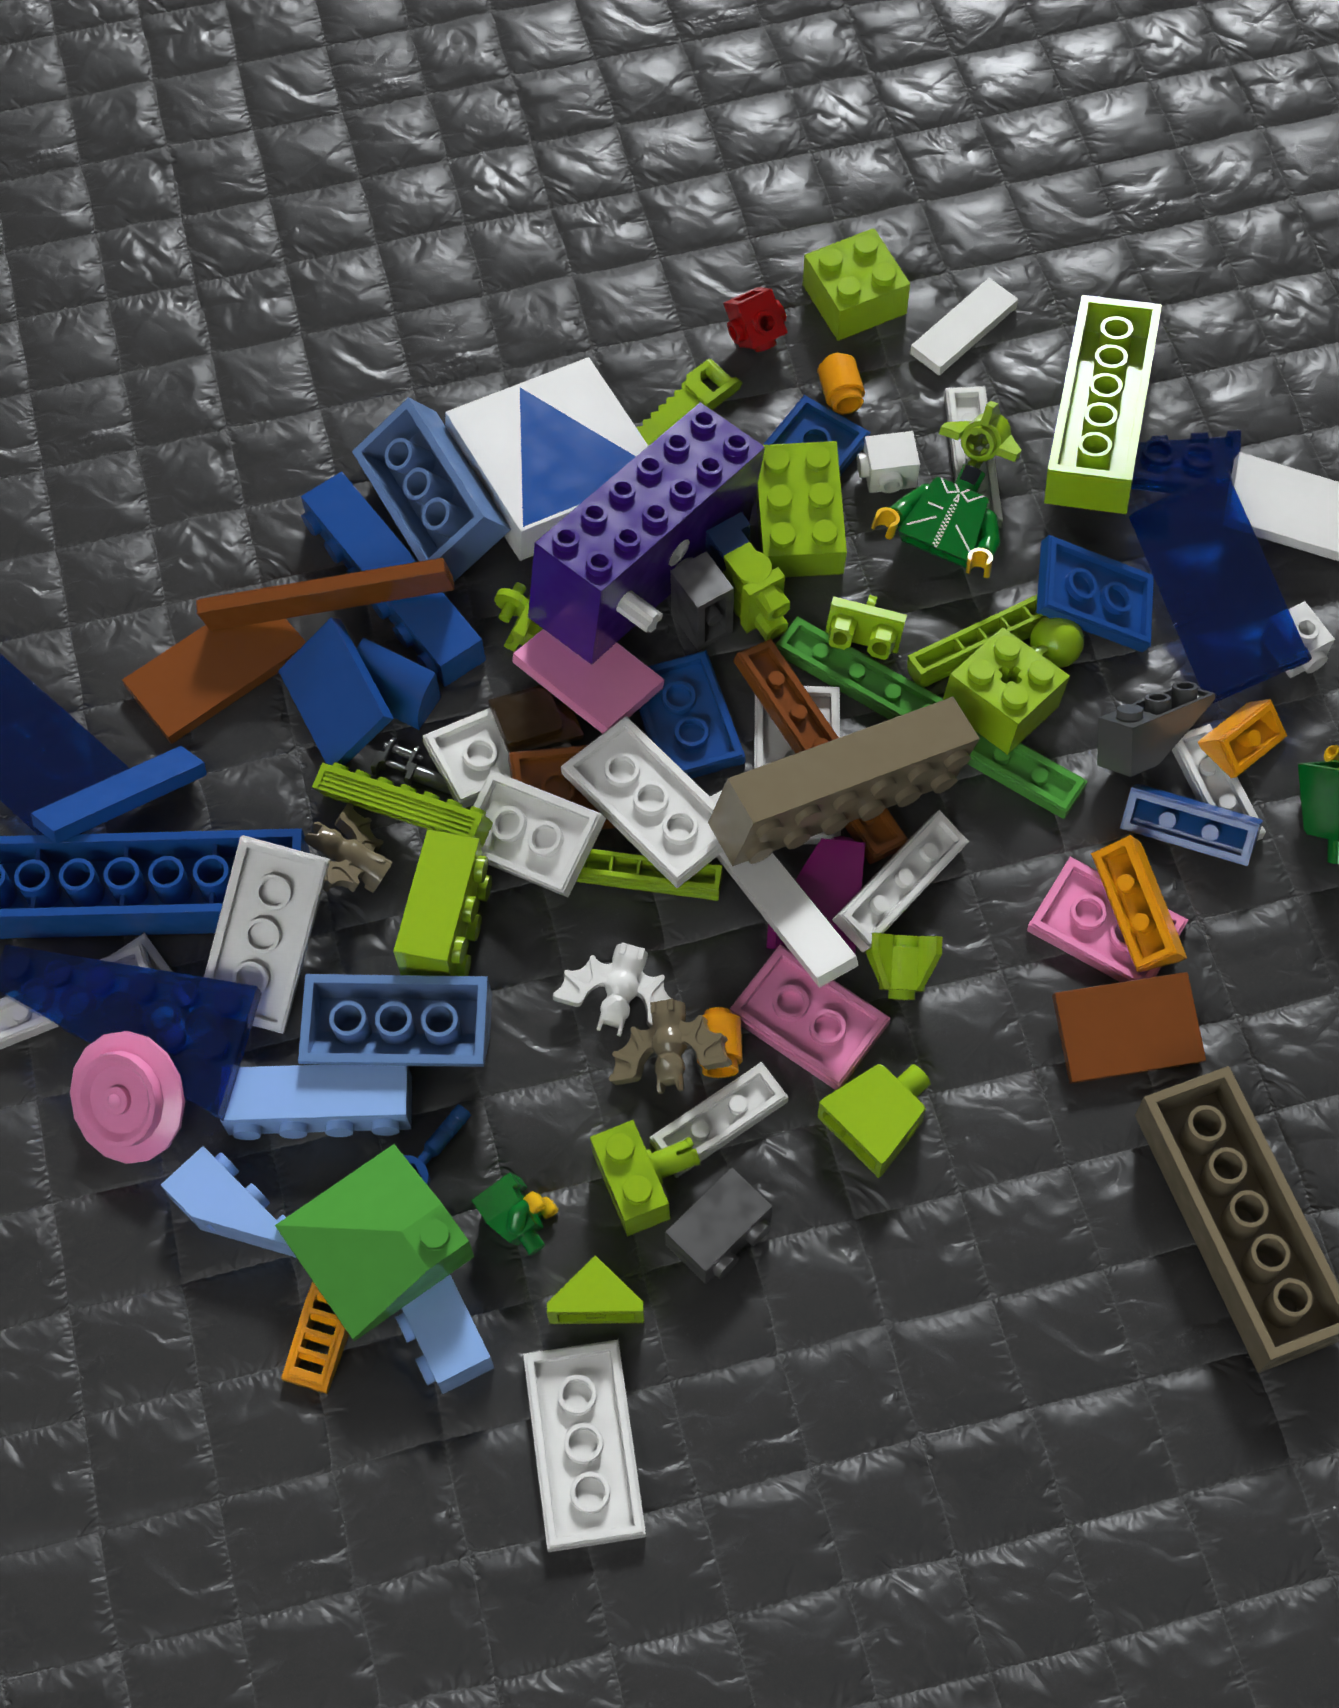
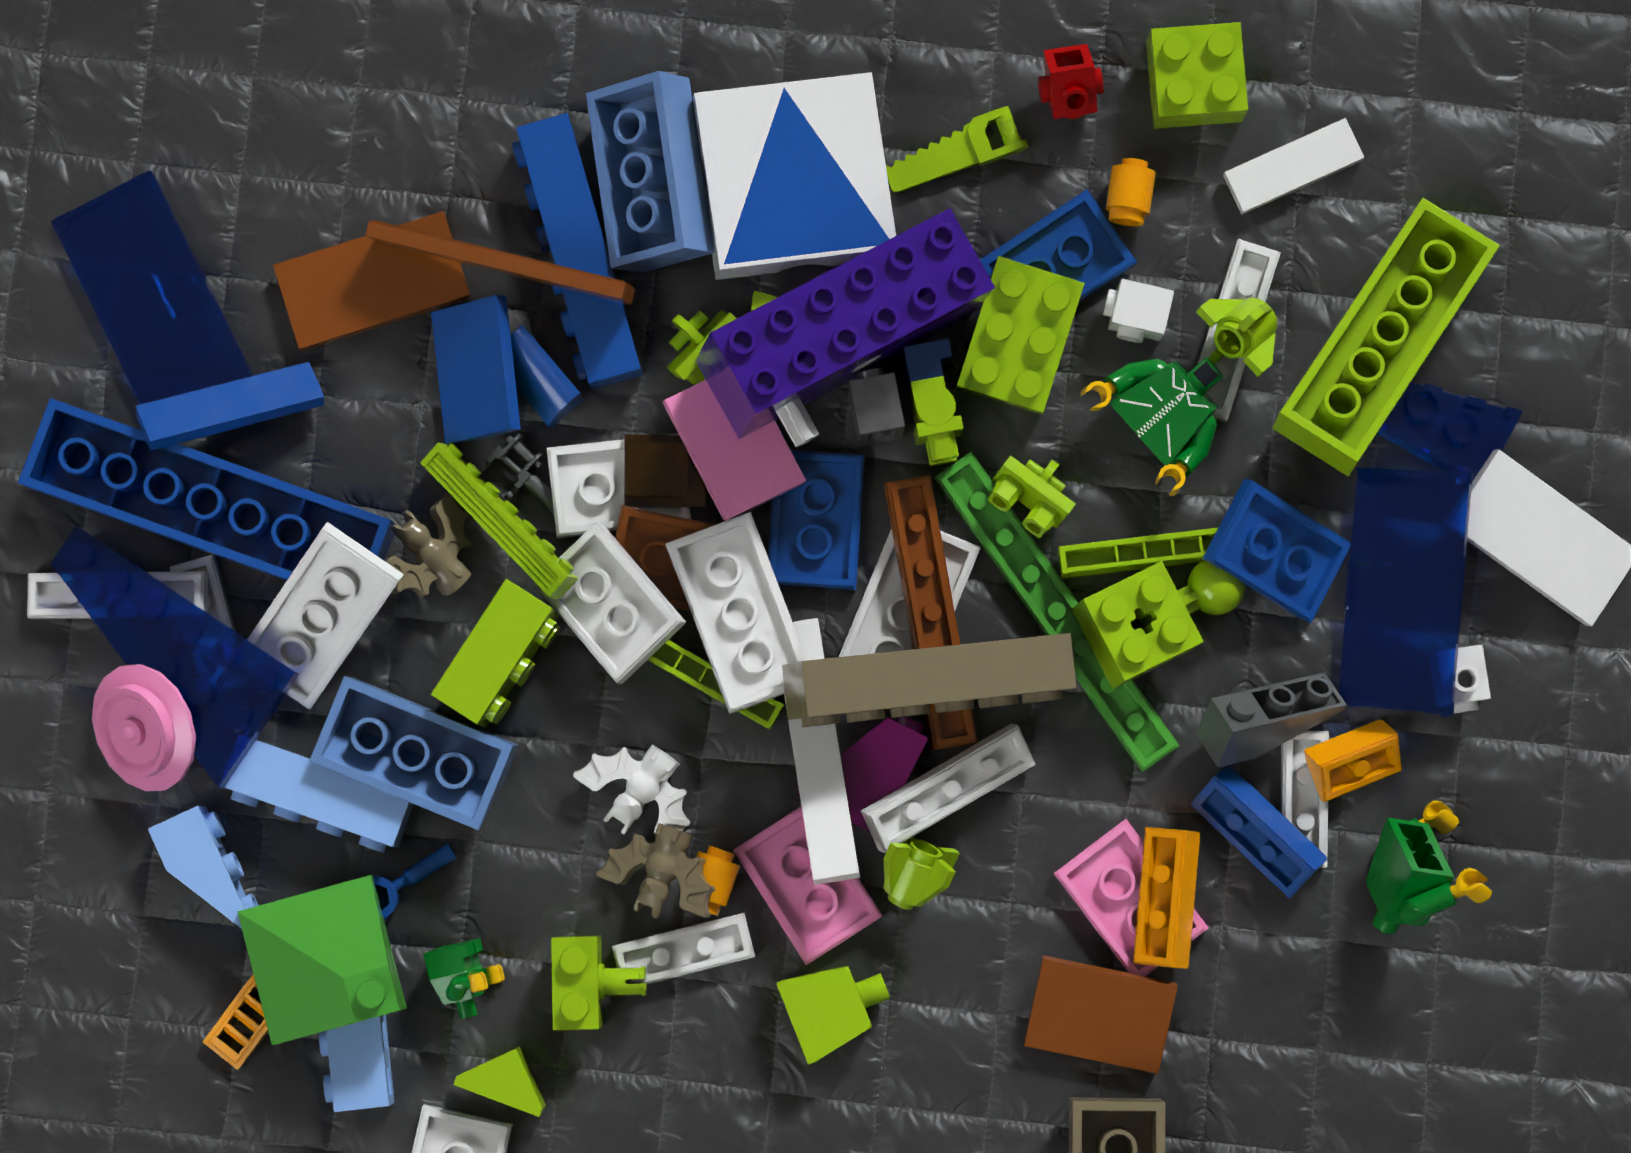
camera: 20 degrees right, 20 degrees up
(720, 1226) = (640, 1059): flat silver brick -> none

